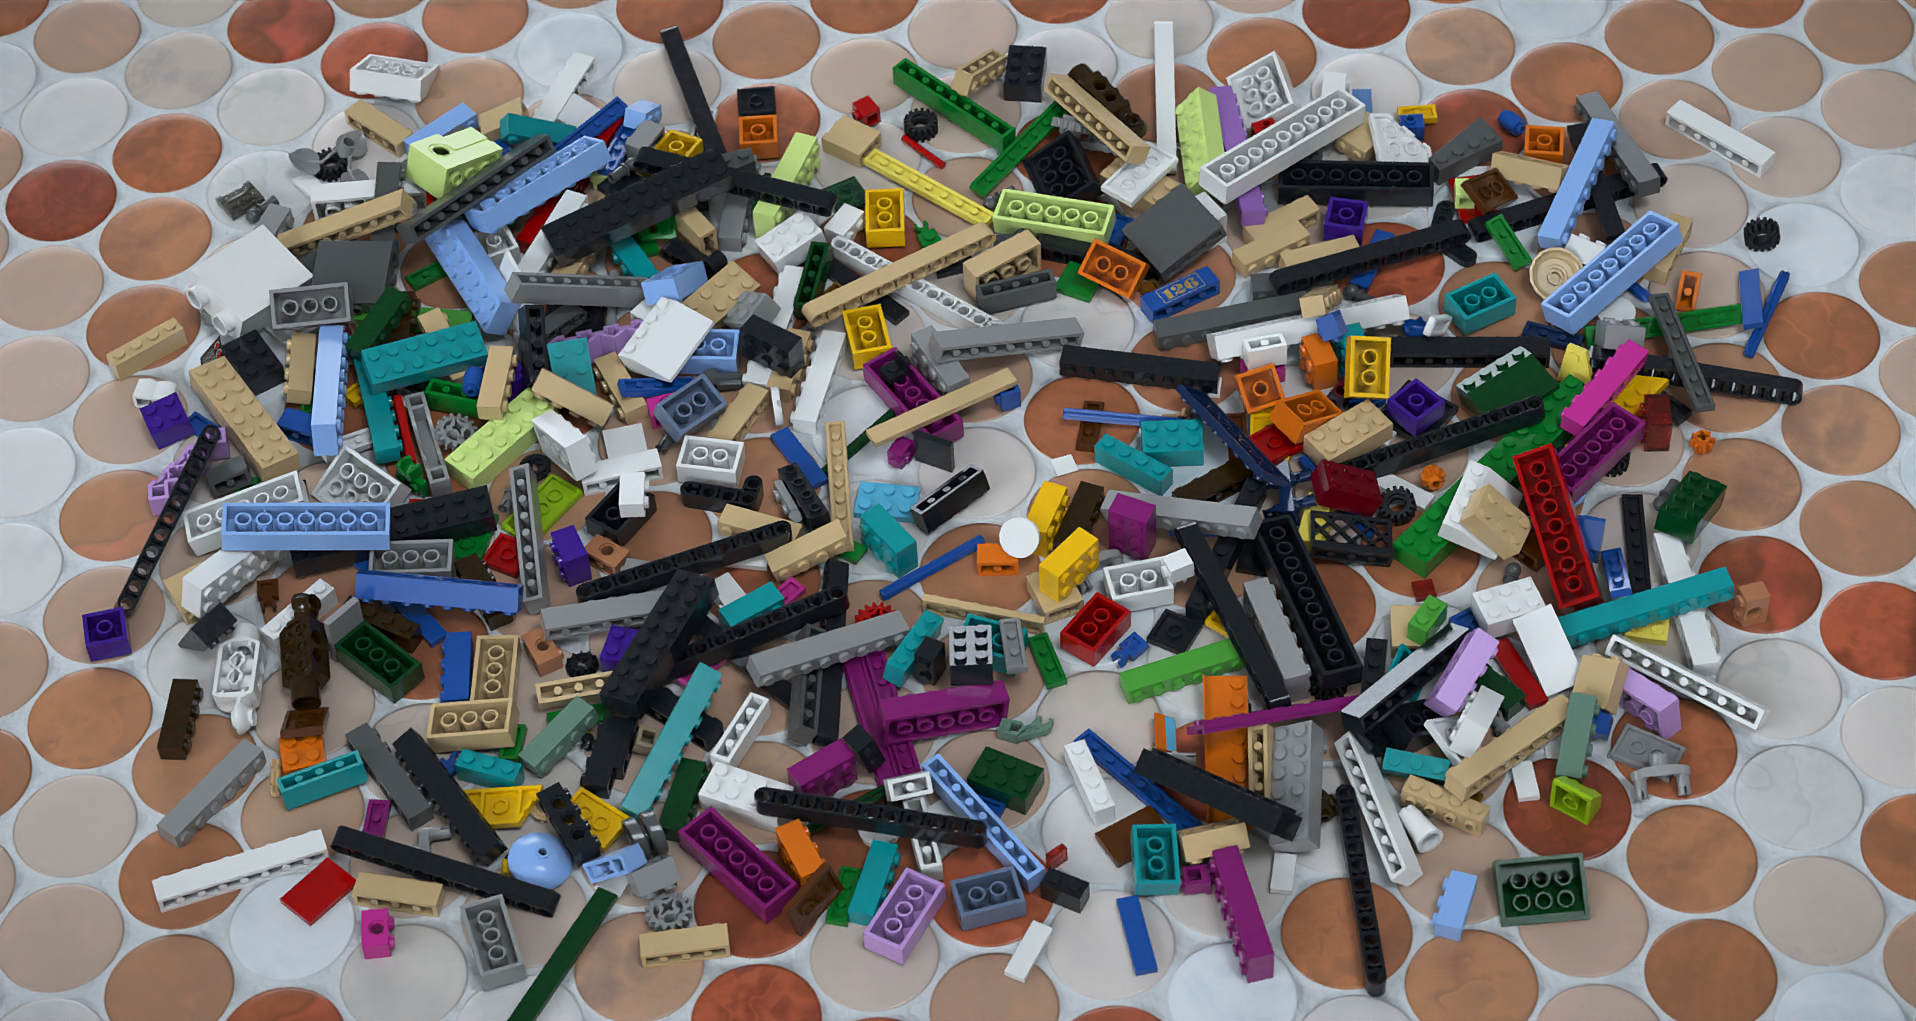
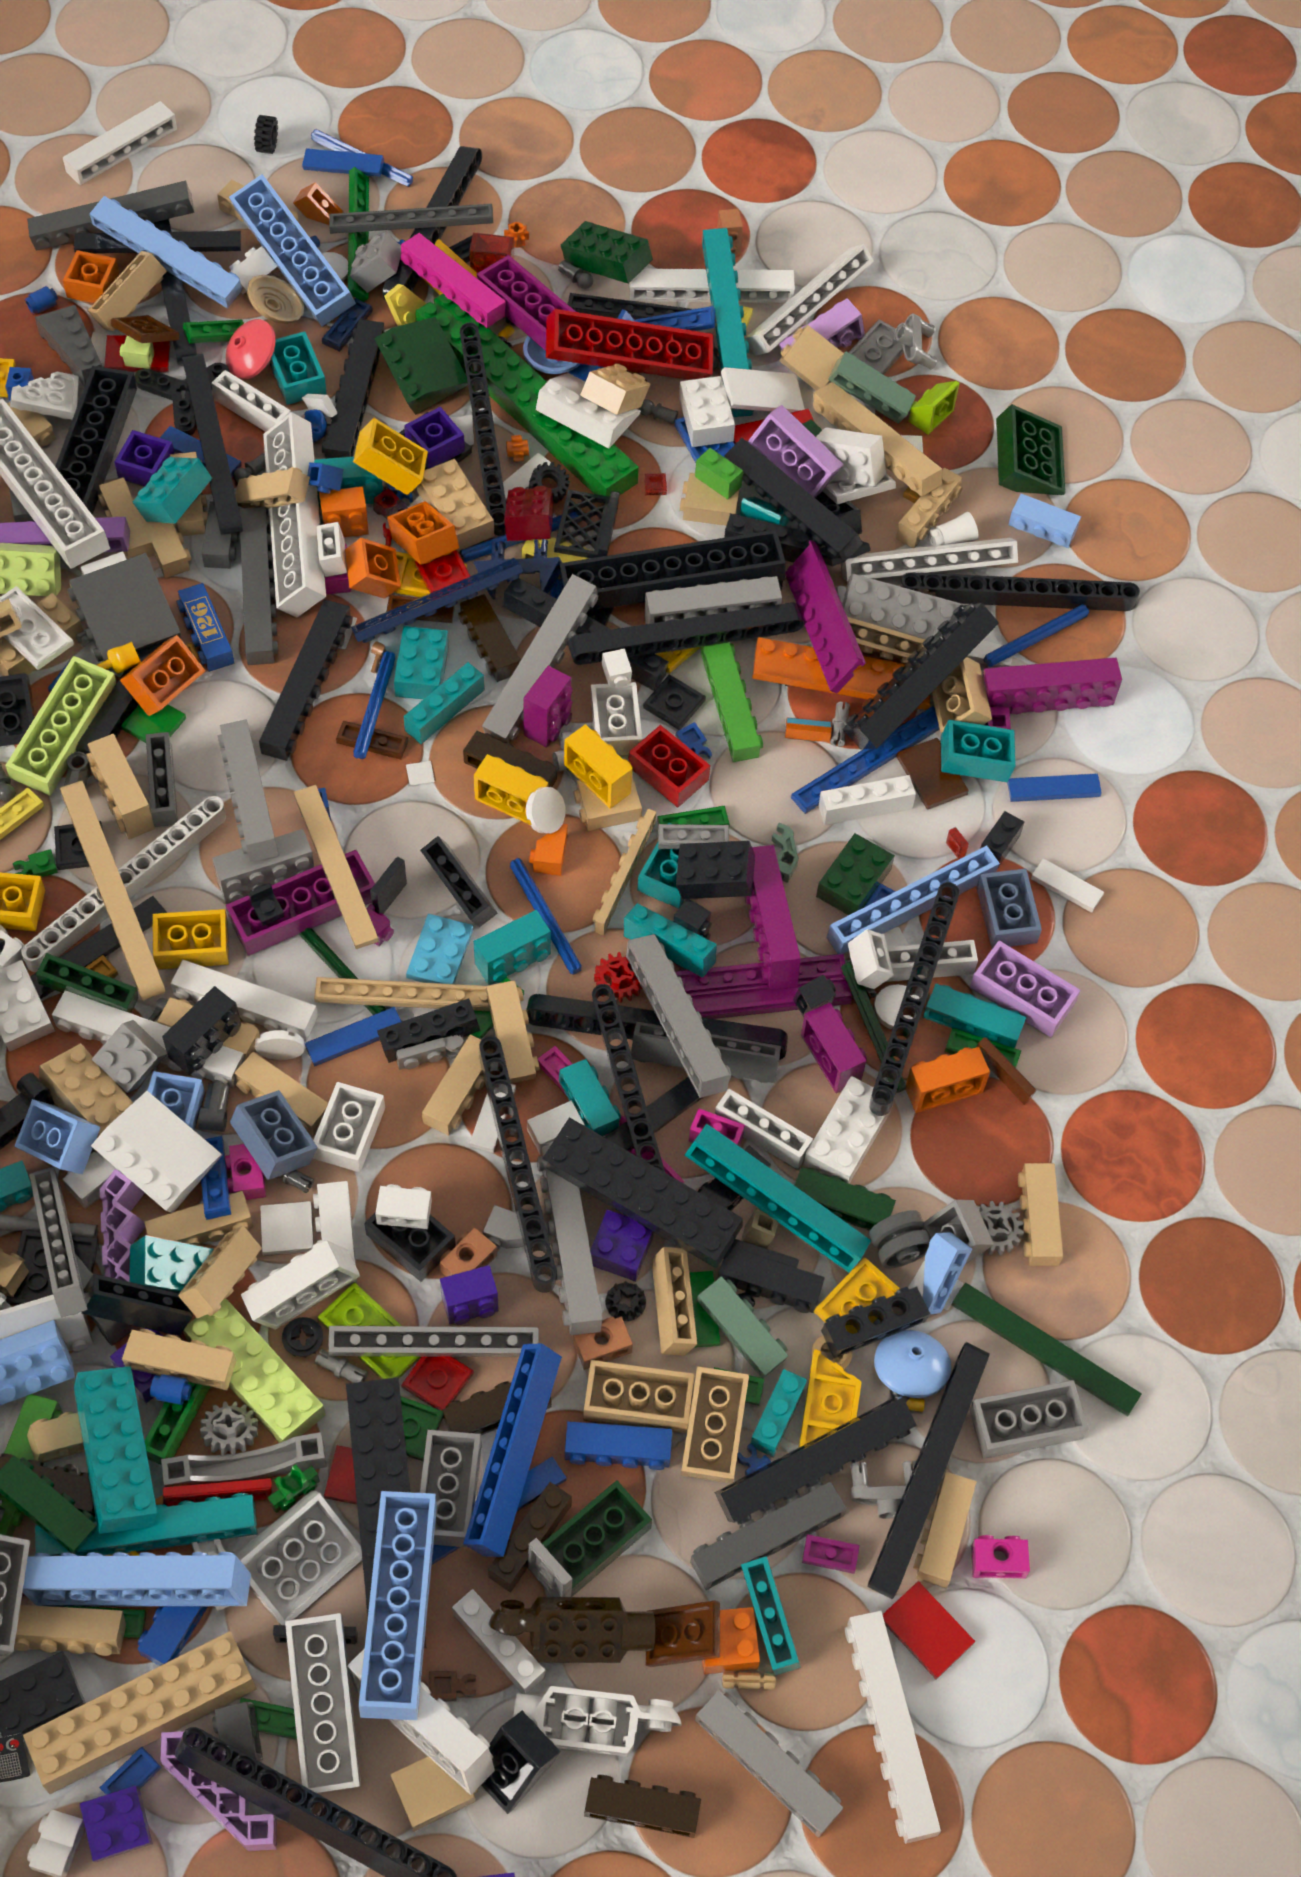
camera: 90 degrees left, 10 degrees up
(715, 497) = (400, 1124): black beam -> none
(732, 699) = (727, 1127): none -> dark pink brick
(738, 864) = (943, 1146): magenta brick -> none
(1123, 239) = (121, 658): none -> yellow piece
(1300, 233) = (172, 489): none -> teal brick
(1309, 906) = (1036, 635): none -> blue axle
(1426, 767) = (883, 519): teal brick -> none
(1429, 279) = (247, 401): none -> white brick
(1489, 264) = (250, 349): none -> coral dish

